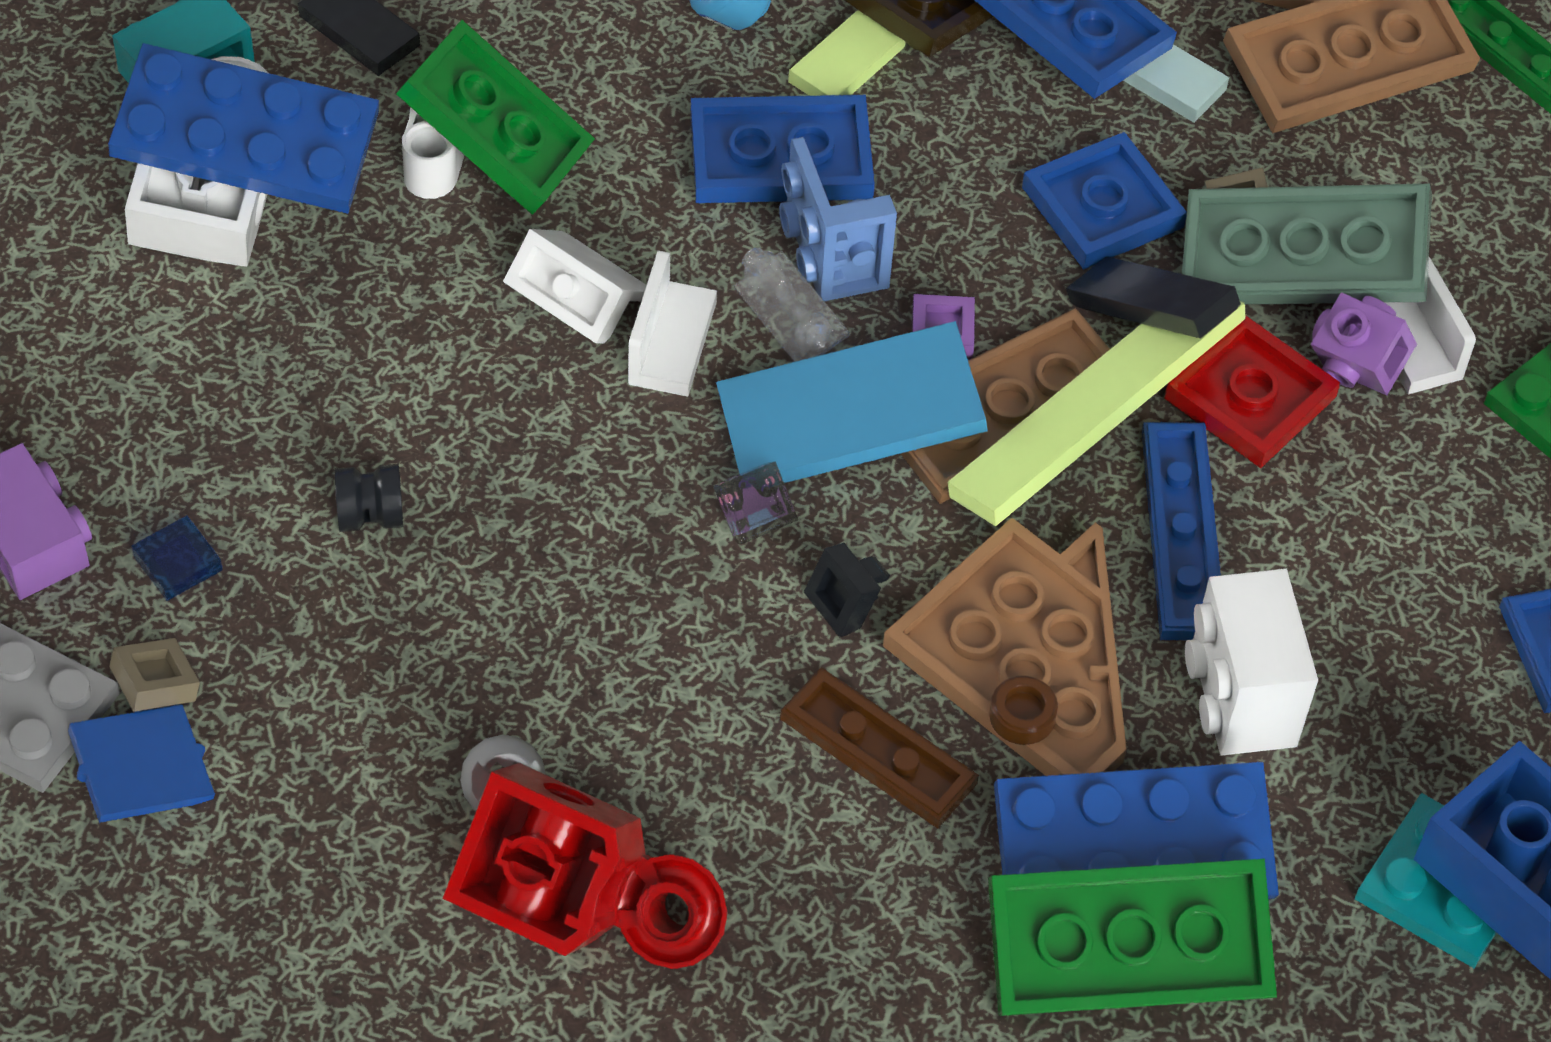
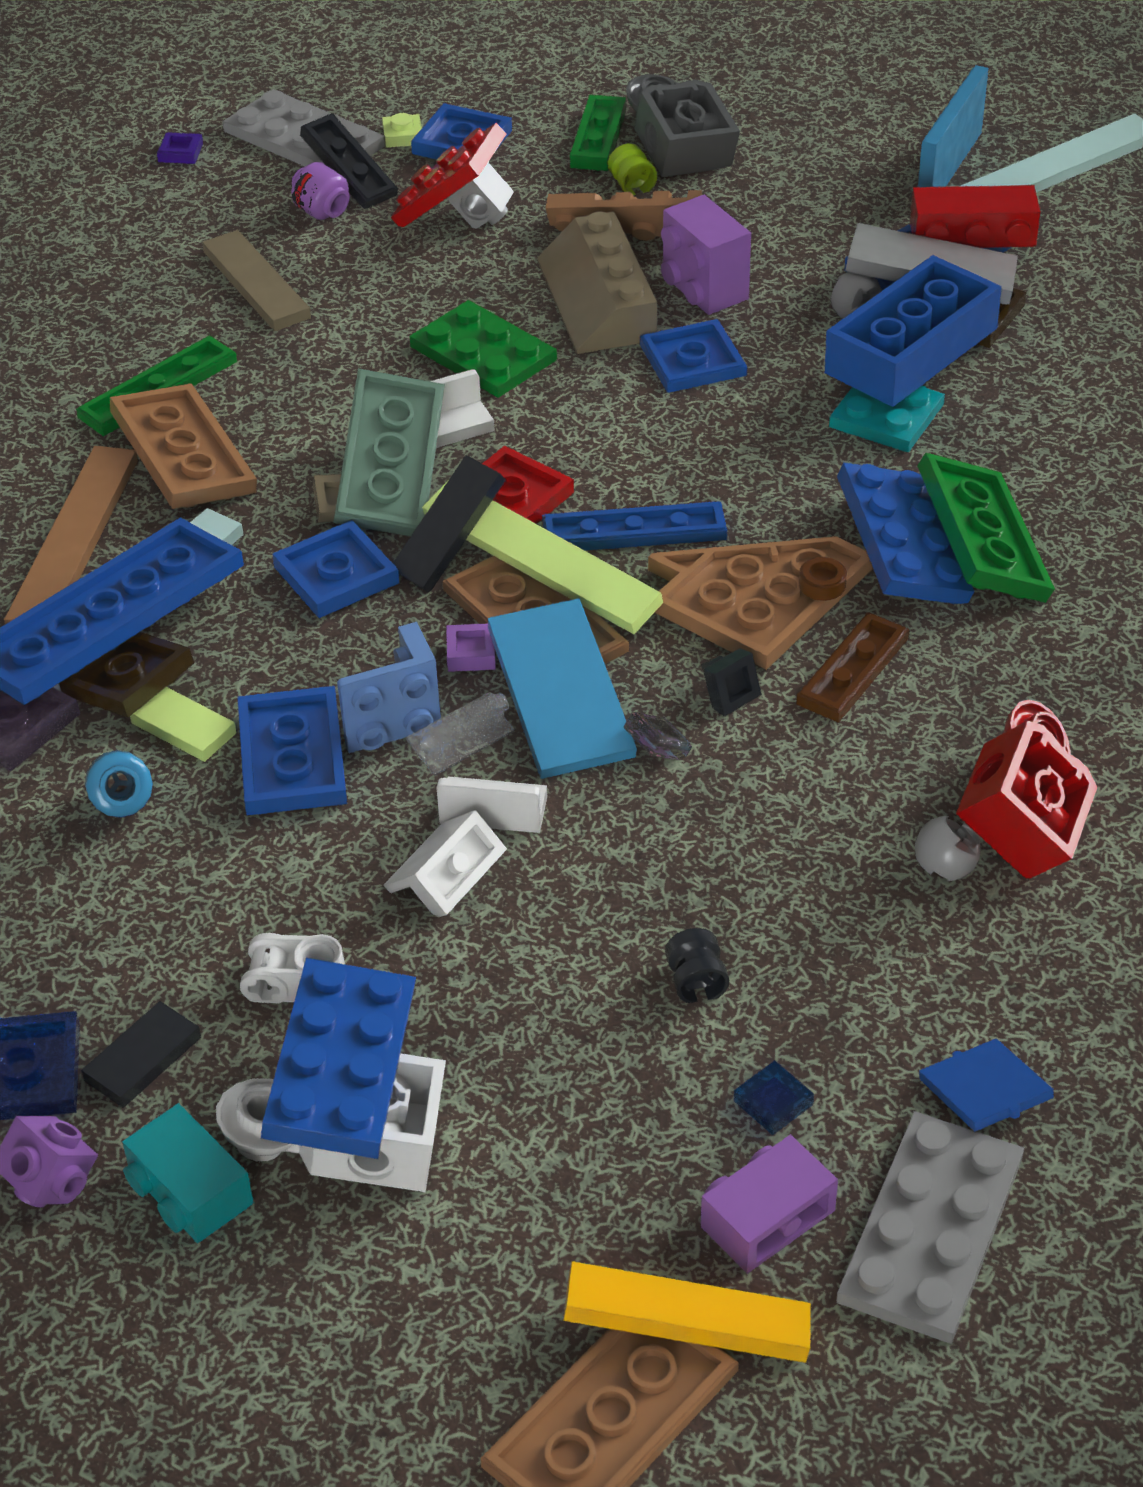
camera: 90 degrees left, 10 degrees down
(154, 674) = (903, 1083): dark tan plate -> none
(496, 116) = (288, 908): green plate -> none
(1251, 662) = (765, 467): white brick -> none
(1362, 343) = (473, 429): medium lavender brick -> none

